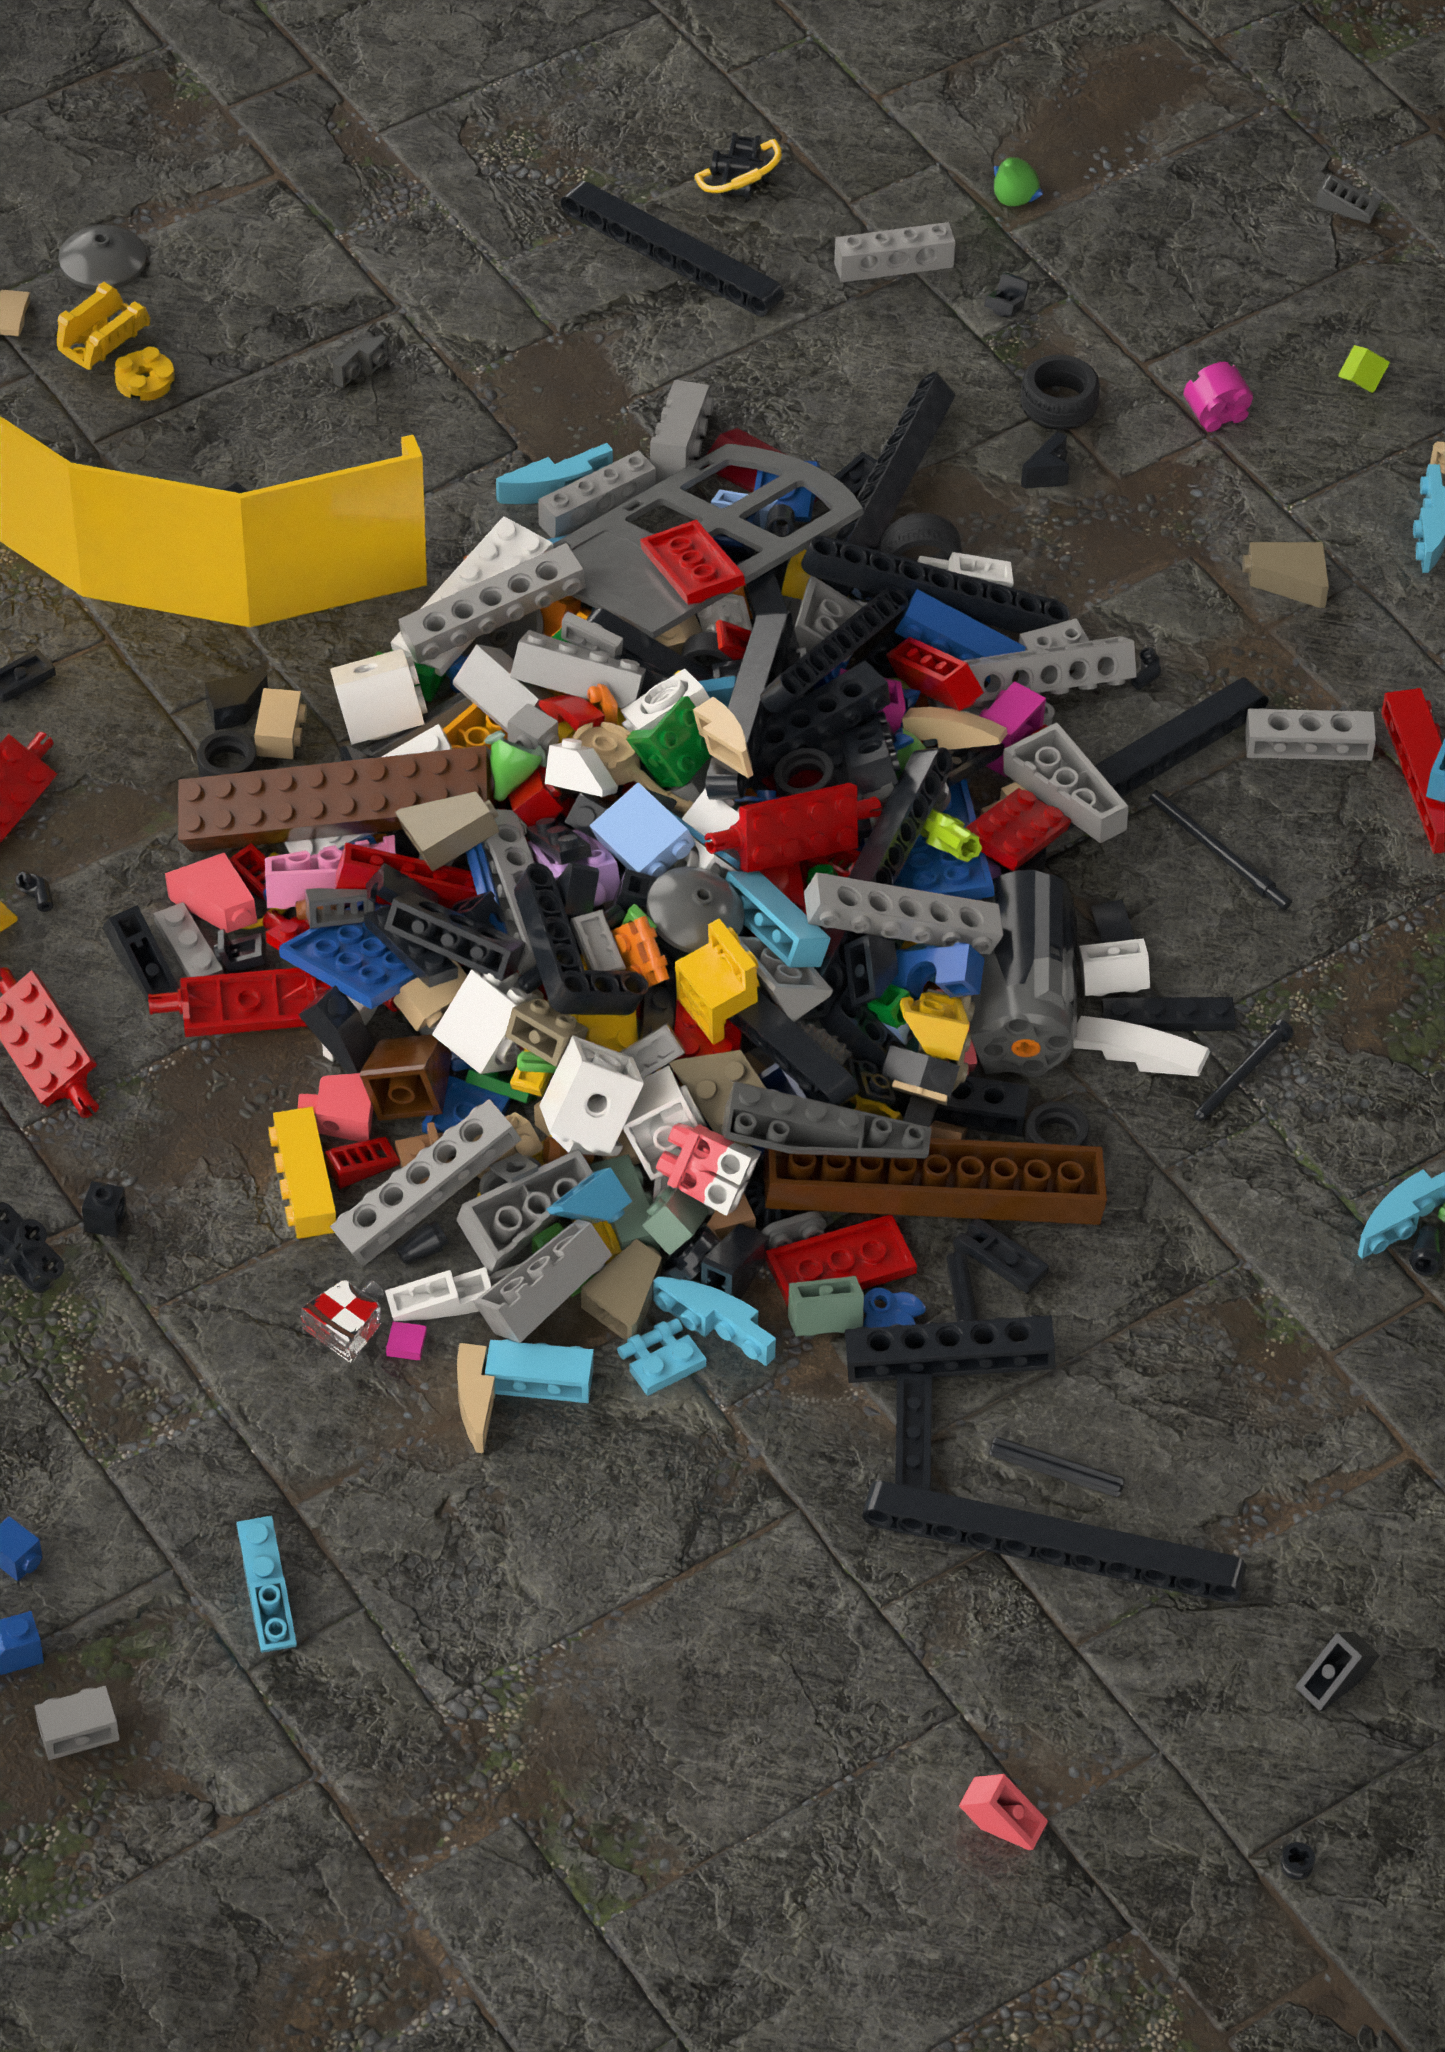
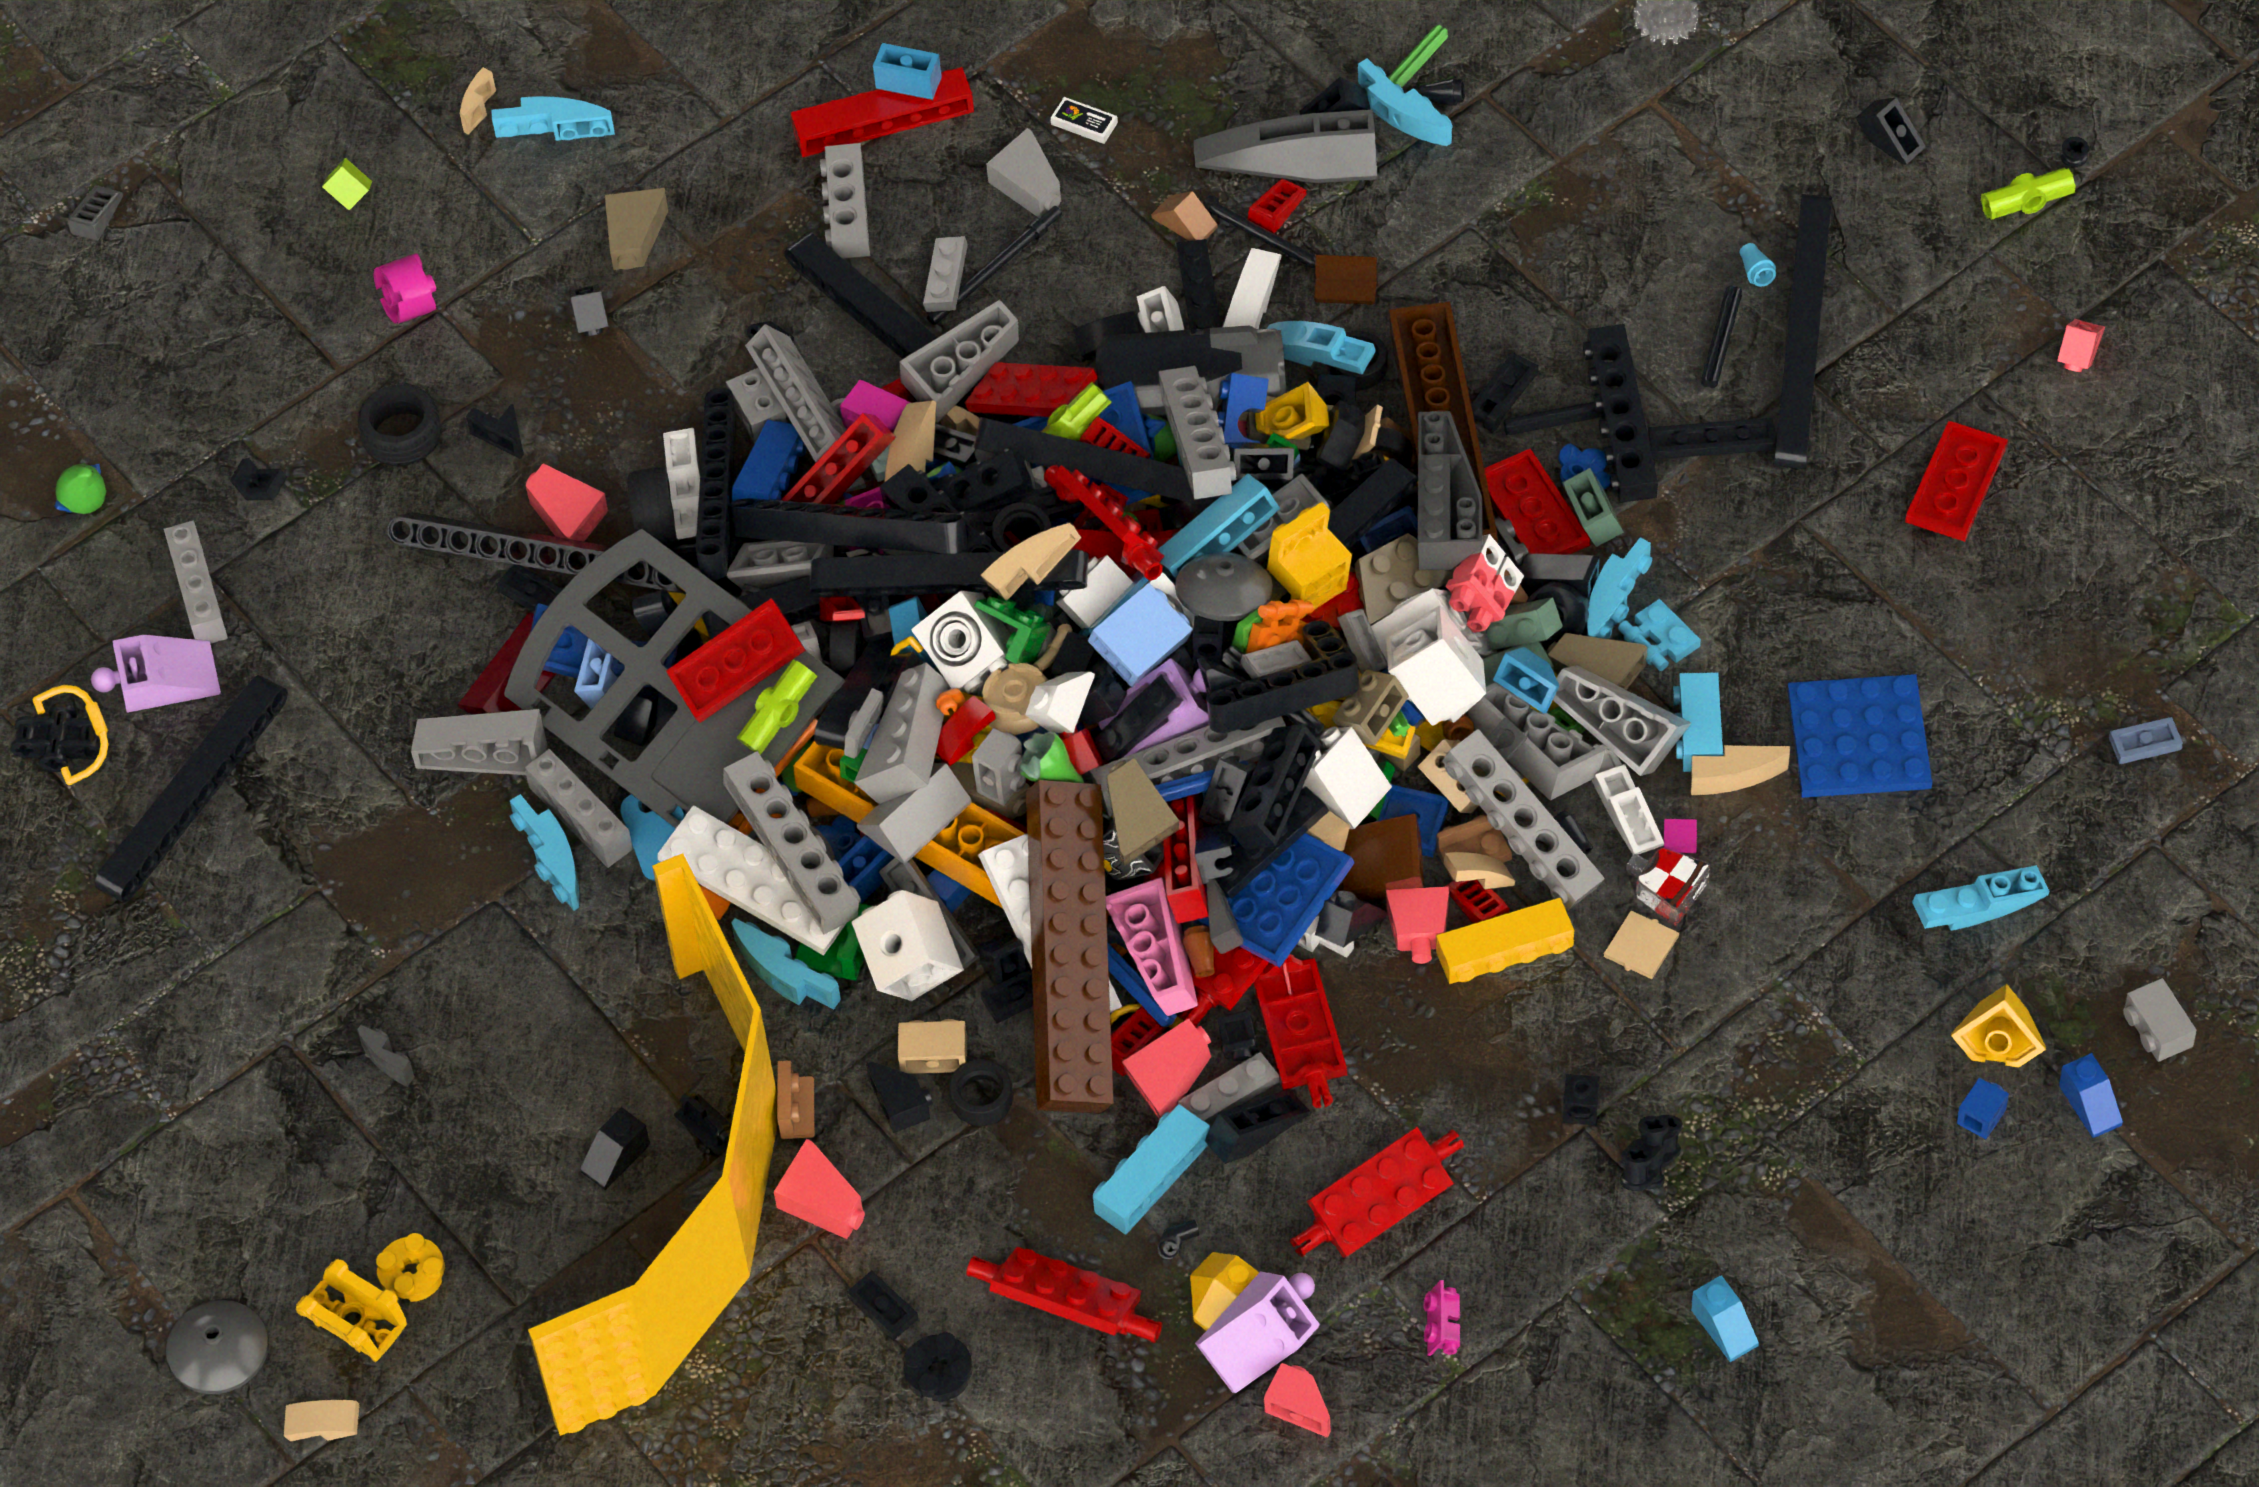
camera: 90 degrees left, 5 degrees up
(104, 1578) = (2000, 1031): none -> yellow slope
(109, 871) = (1151, 1169): none -> medium azure brick
(147, 638) = (819, 1193): none -> coral slope
(244, 622) = (795, 1103): none -> medium nougat bracket
(283, 1292) = (1641, 944): none -> tan piece
(383, 626) = (773, 963): none -> medium azure slope
(387, 1149) = (1474, 866): none -> tan slope
(442, 1781) = (2145, 740): none -> sand blue plate
(502, 1518) = (1859, 736): none -> blue plate
(632, 587) = (777, 707): none -> lime piece
(800, 227) = (168, 671): none -> lavender slope
(824, 1657) = (1956, 481): none -> red plate
(923, 863) = (1101, 433): none -> red slope
(955, 498) = (565, 503): none -> coral slope
(1062, 1085) = (1325, 344): none -> medium azure slope
(1151, 1511) = (1758, 267): none -> medium azure cone
(1166, 1138) = (1345, 279): none -> reddish brown panel
(1189, 531) = (588, 310): none -> slope
(1207, 805) = (945, 274): none -> light grey plate
(1233, 1796) = (2028, 193): none -> lime piece
(1264, 1007) = (1185, 216): none -> medium nougat slope
(1278, 1075) = (1274, 208): none -> red slope
(1334, 880) = (1025, 175): none -> light grey slope
(1348, 1112) = (1296, 148): none -> dark grey wedge
(1405, 1150) = (1338, 97): none -> black slope
(1410, 938) = (1084, 120): none -> tile

